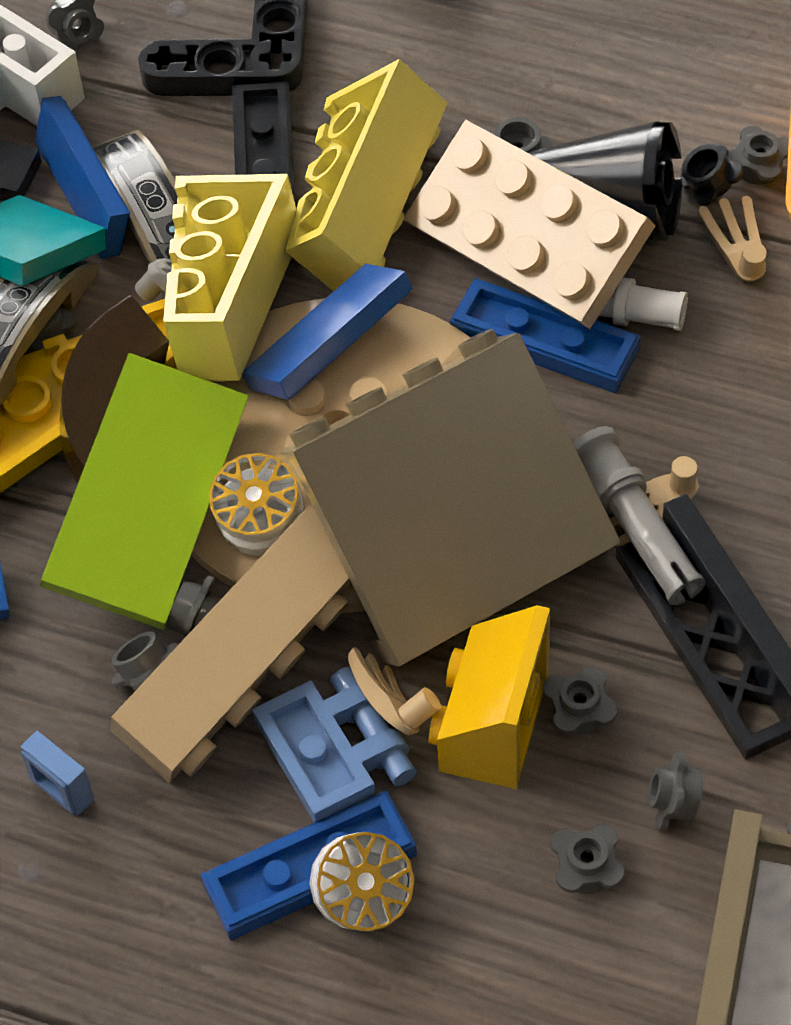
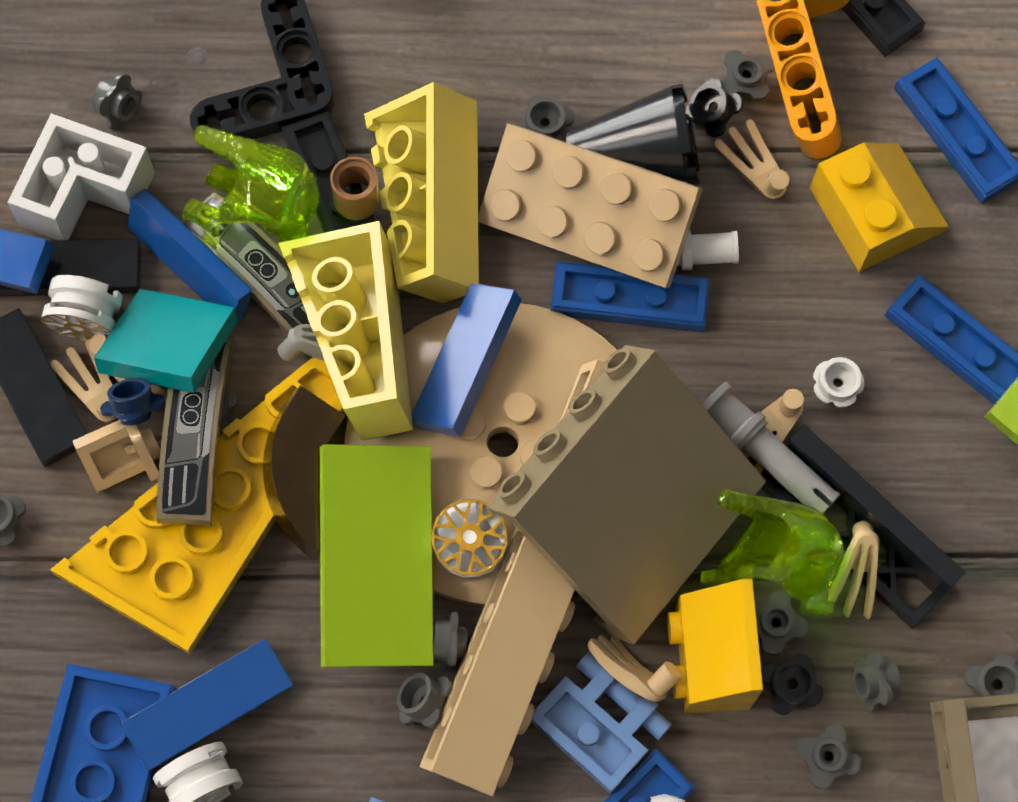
camera: 25 degrees left, 15 degrees up
(184, 114) = (266, 187): none -> clear neon green piece
(280, 144) = (355, 171): none -> medium nougat beam
(579, 753) = (797, 669): none -> black plate
(622, 608) = (792, 541): none -> clear neon green piece
(706, 653) = (861, 557): none -> tan piece
(755, 462) = (841, 369): none -> white plate

